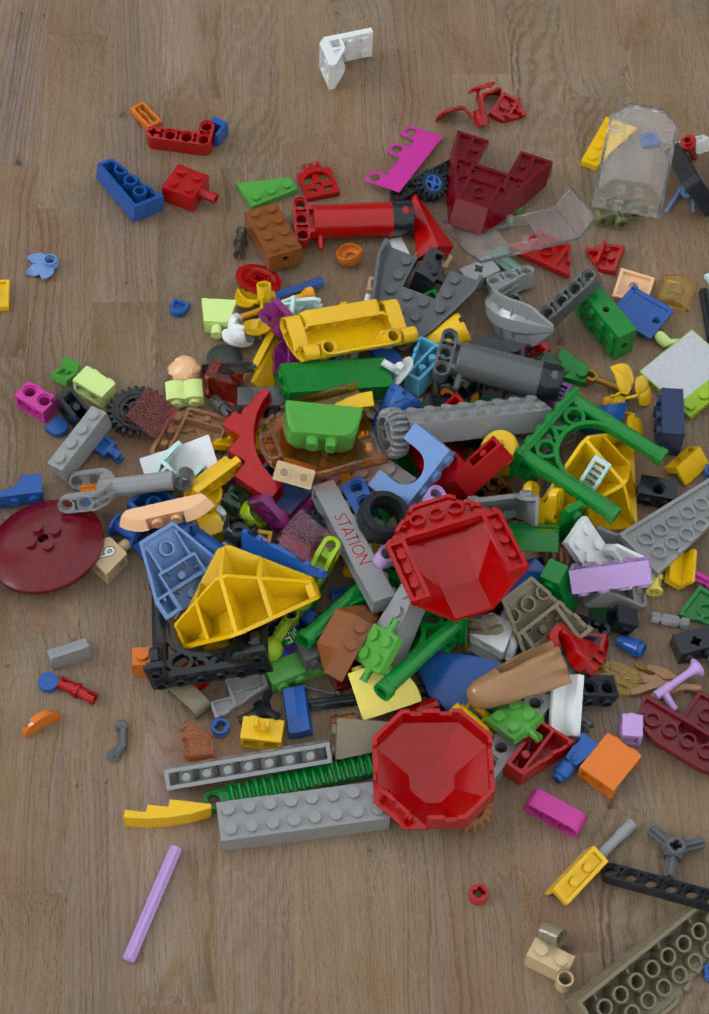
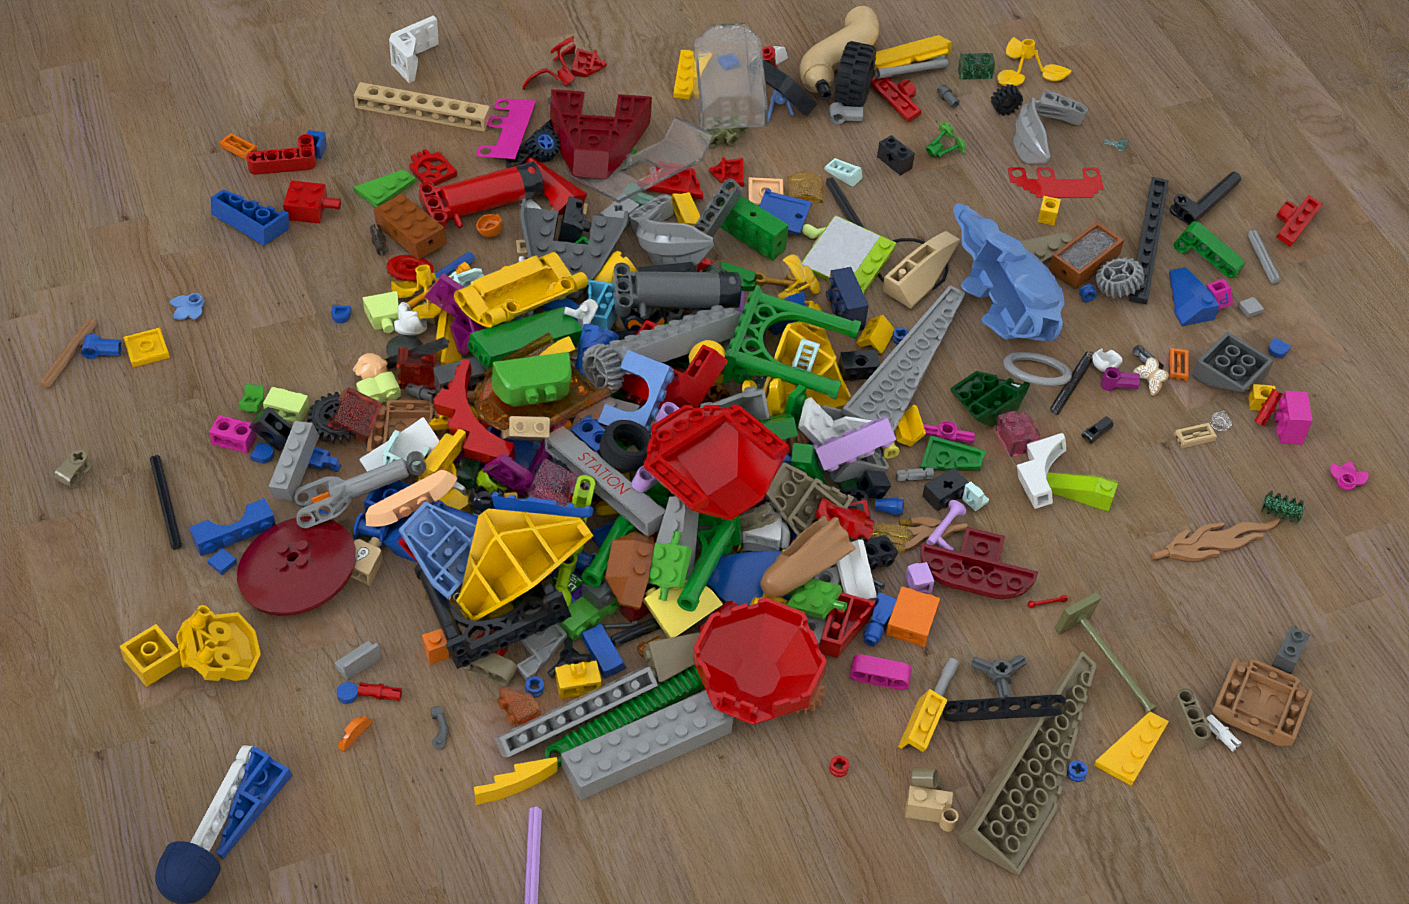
camera: 20 degrees left, 5 degrees down
(331, 117) = (422, 106): none -> tan brick
(545, 286) = (685, 208): none -> yellow piece

